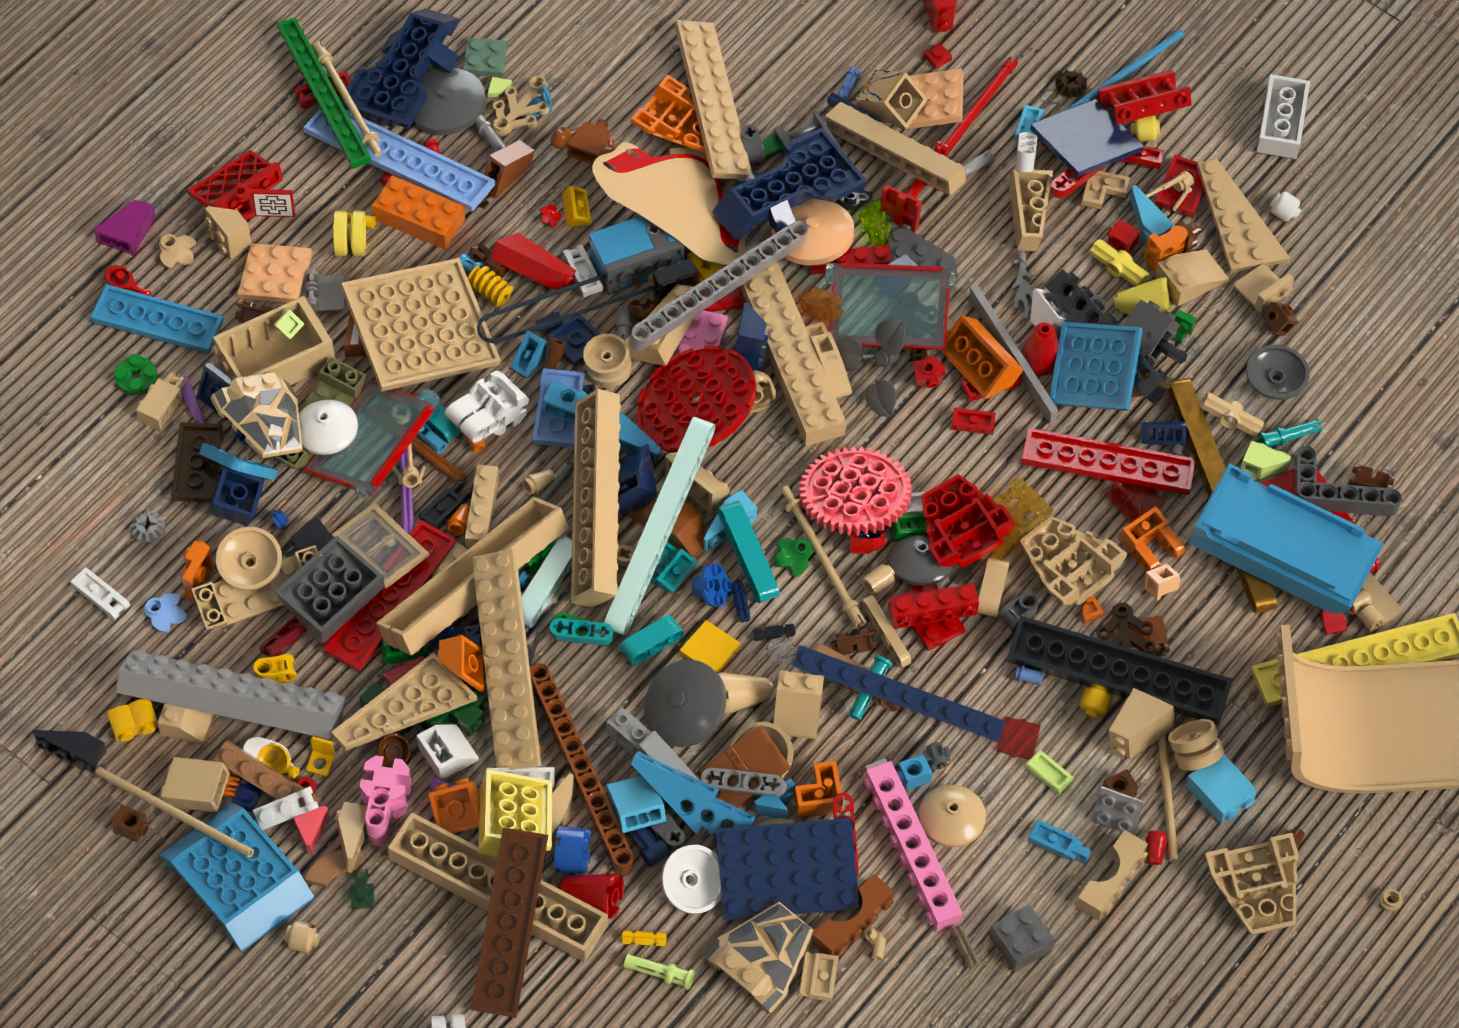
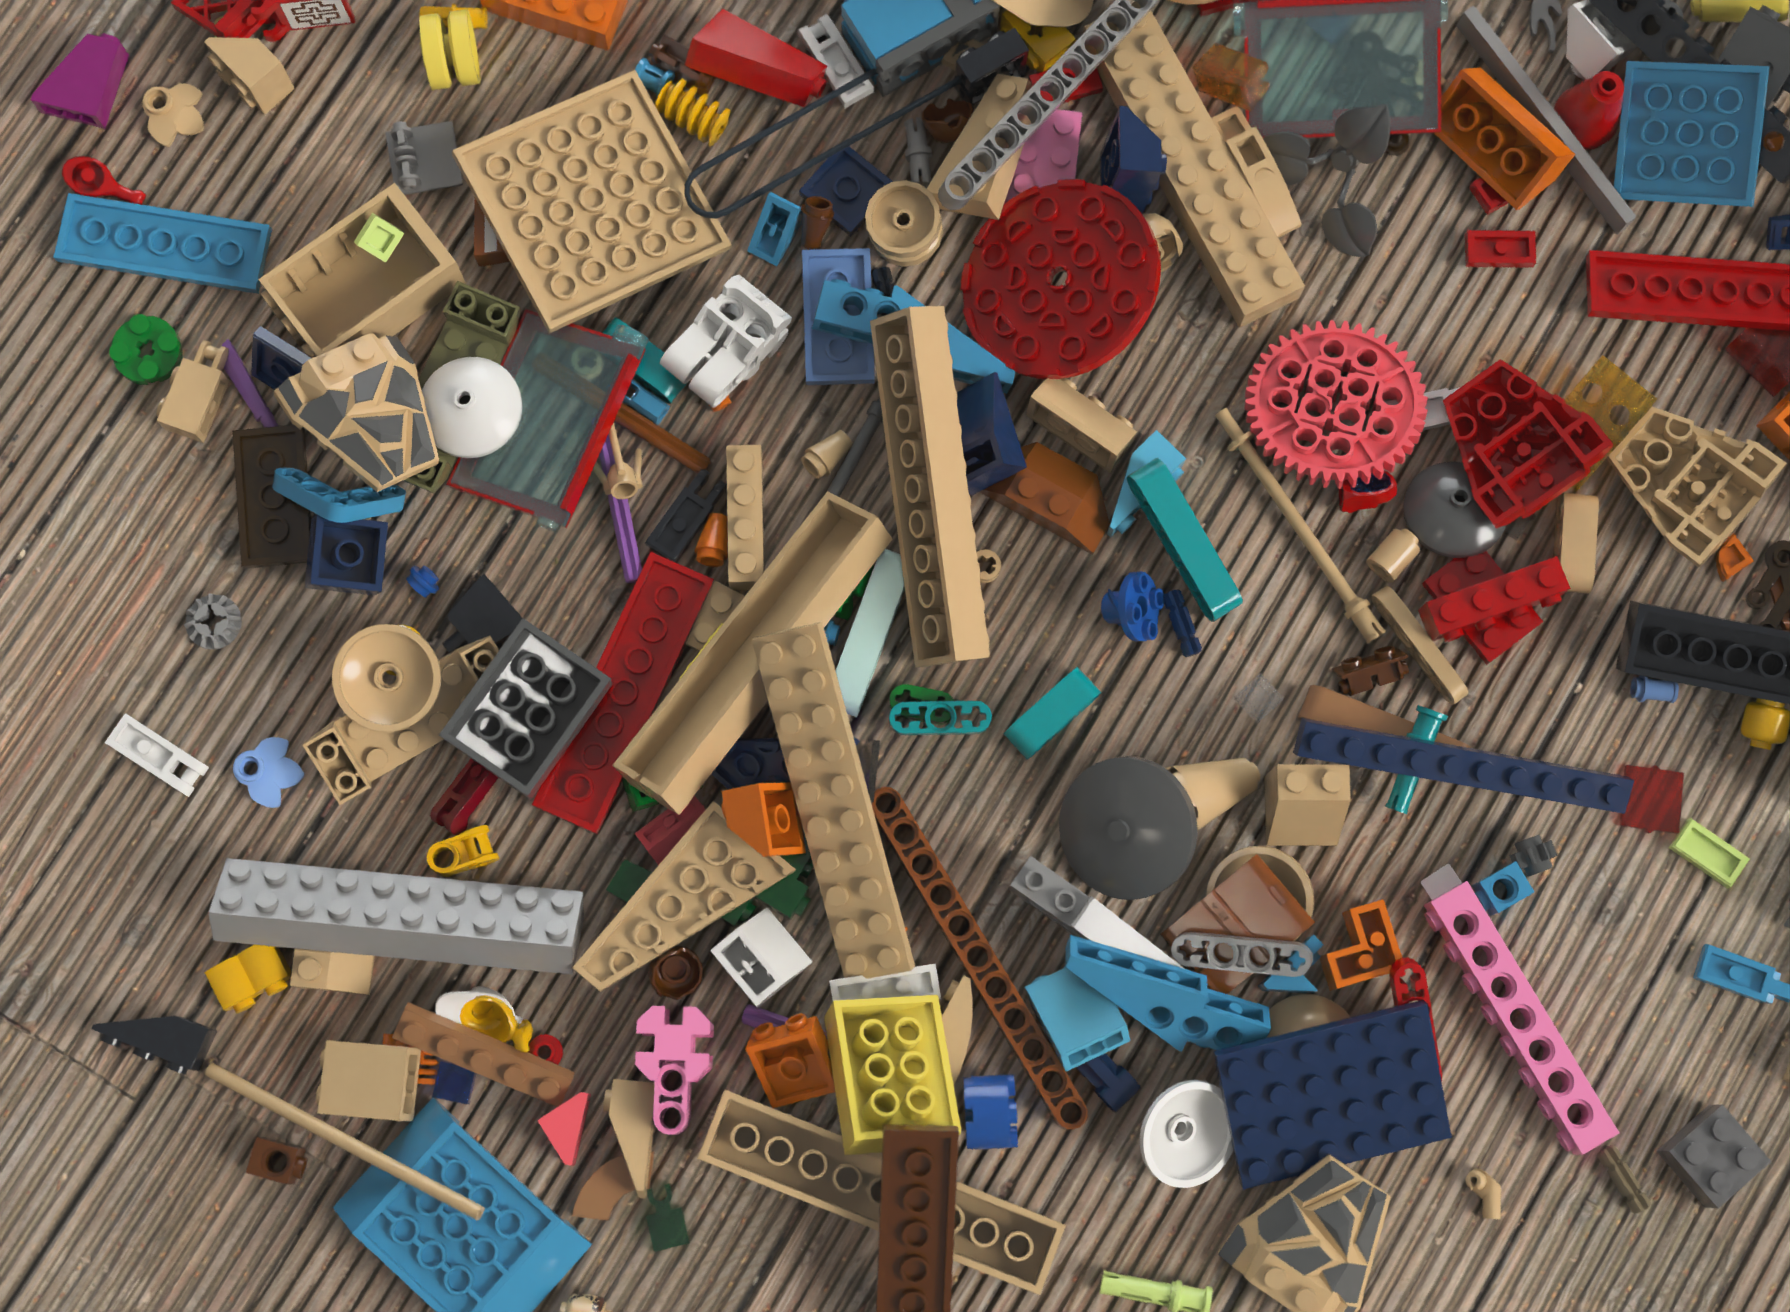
camera: 10 degrees left, 20 degrees up
(198, 567) = (308, 688): orange plate -> none
(249, 311) = (309, 212): reddish brown hinge -> none
(274, 273) = (340, 133): light nougat plate -> none
(285, 808) = (521, 1103): white plate -> none
(323, 750) = (559, 984): yellow bracket -> none
(382, 543) = (593, 606): clear door -> none
(553, 316) = (796, 159): dark blue pin -> none
(596, 890) = (1033, 1178): red cone -> none
(644, 938) = (1123, 1237): yellow axle -> none
(659, 525) = (1040, 519): light aqua beam -> none
(669, 833) = (1137, 1048): dark grey piece -> none
(672, 568) = (1055, 575): teal slope -> none
(710, 646) = (1146, 712): yellow tile -> none
(774, 632) = (1242, 669): black axle -> none
(791, 556) = (1246, 529): green plate -> none
(819, 976) = (1407, 1266): tan plate -> none
(834, 936) = (1471, 1120): dark orange arch -> none
(899, 530) = (1416, 461): green slope -> none
(929, 372) = (1410, 182): red brick -> none
(949, 826) = (1546, 955): tan dish -> none
(1011, 612) = (1620, 583): dark grey piece -> none

